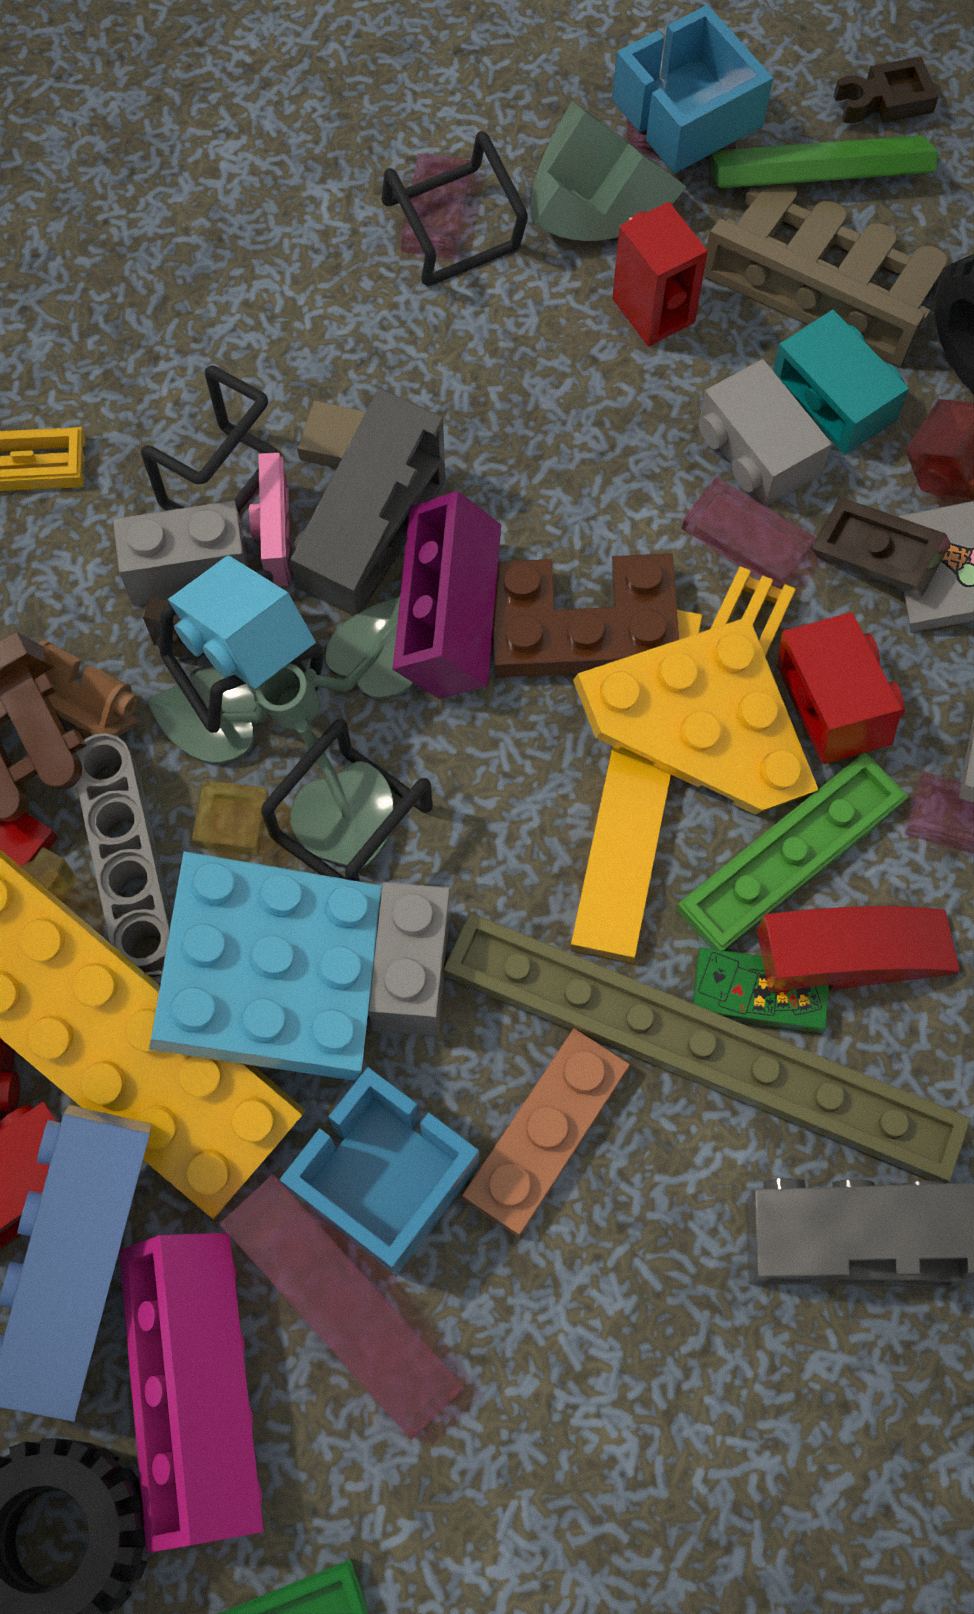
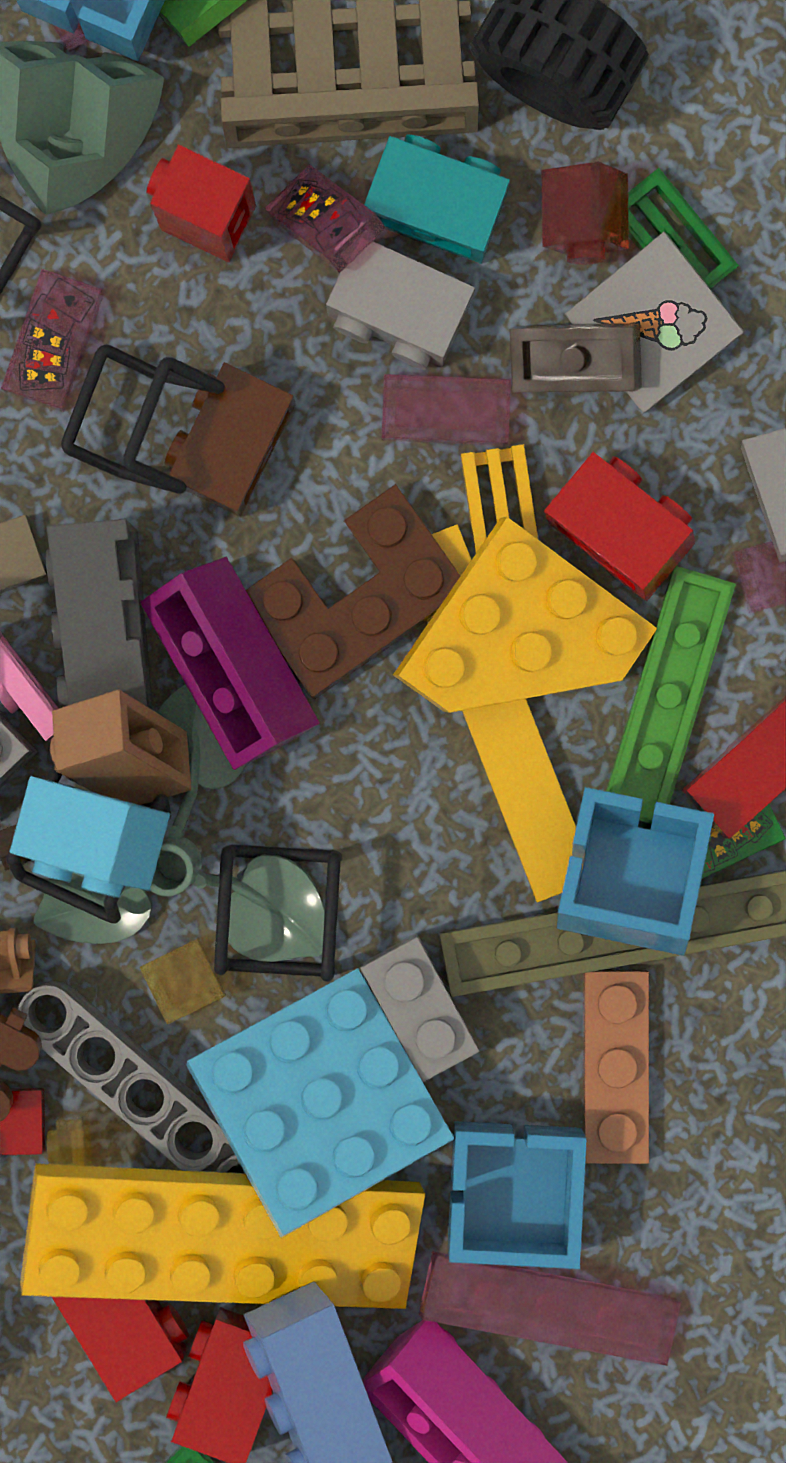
camera: 30 degrees left, 20 degrees up
(324, 583) = (120, 748): none -> medium nougat brick
(477, 317) = (52, 340): none -> clear pink tile
(520, 349) = (168, 371): none -> black piece
(564, 449) = (230, 439): none -> reddish brown brick
(665, 964) = (634, 880): none -> dark azure piece
(745, 340) = (325, 218): none -> clear pink tile

